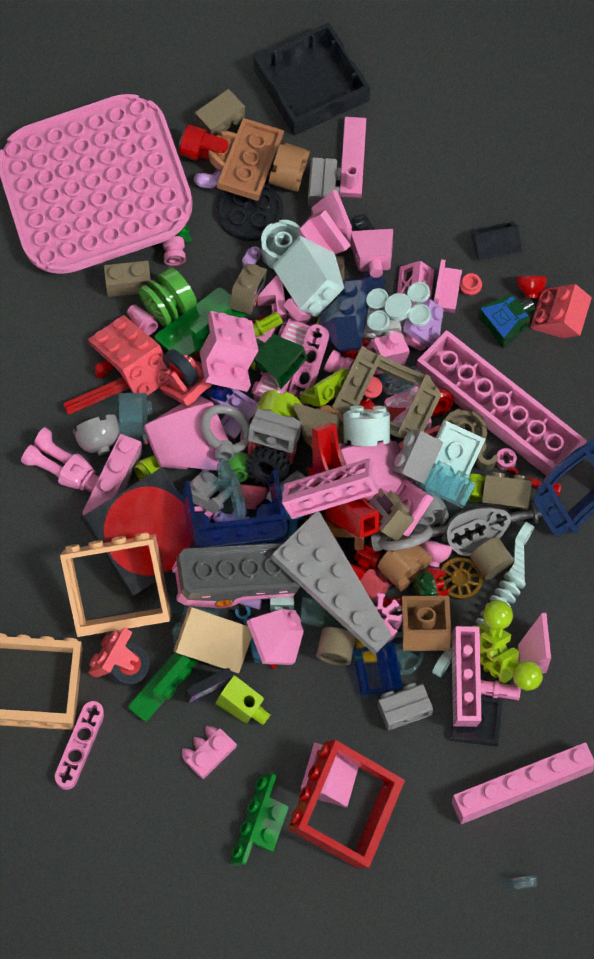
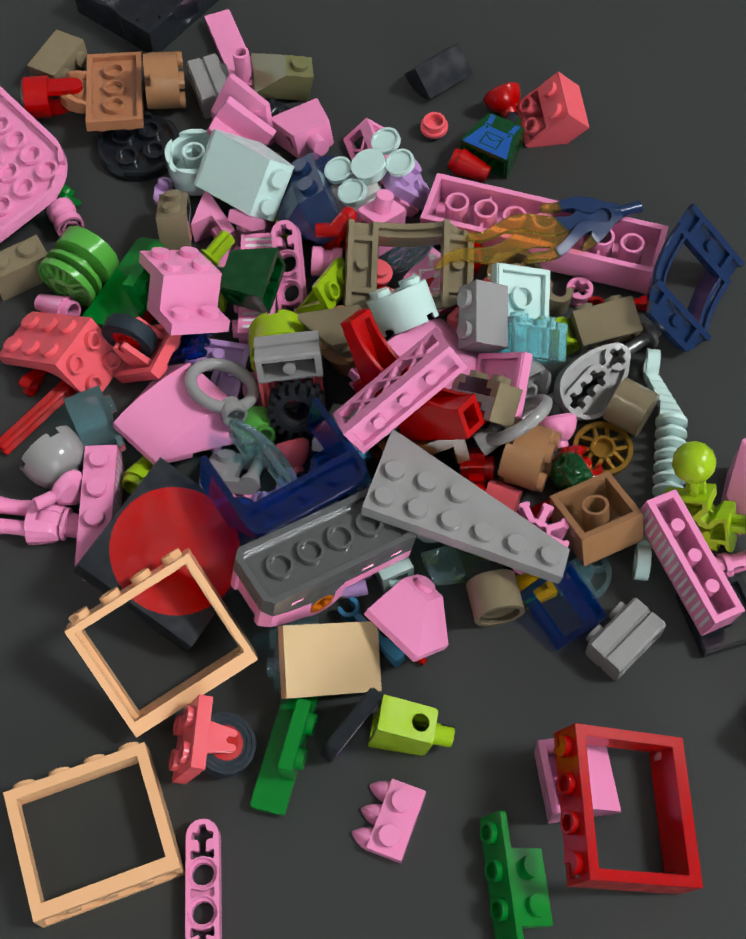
camera: 20 degrees left, 5 degrees down
(95, 459) = (64, 492): none -> bright pink rock
(207, 180) = (73, 132): lavender arm -> none
(354, 346) = (338, 226): none -> red arm
(378, 195) = (282, 76): none -> olive slope
(447, 287) = (411, 136): bright pink panel -> none
(478, 328) = (468, 165): none -> red cone
(500, 414) = (533, 231): none -> clear yellow piece

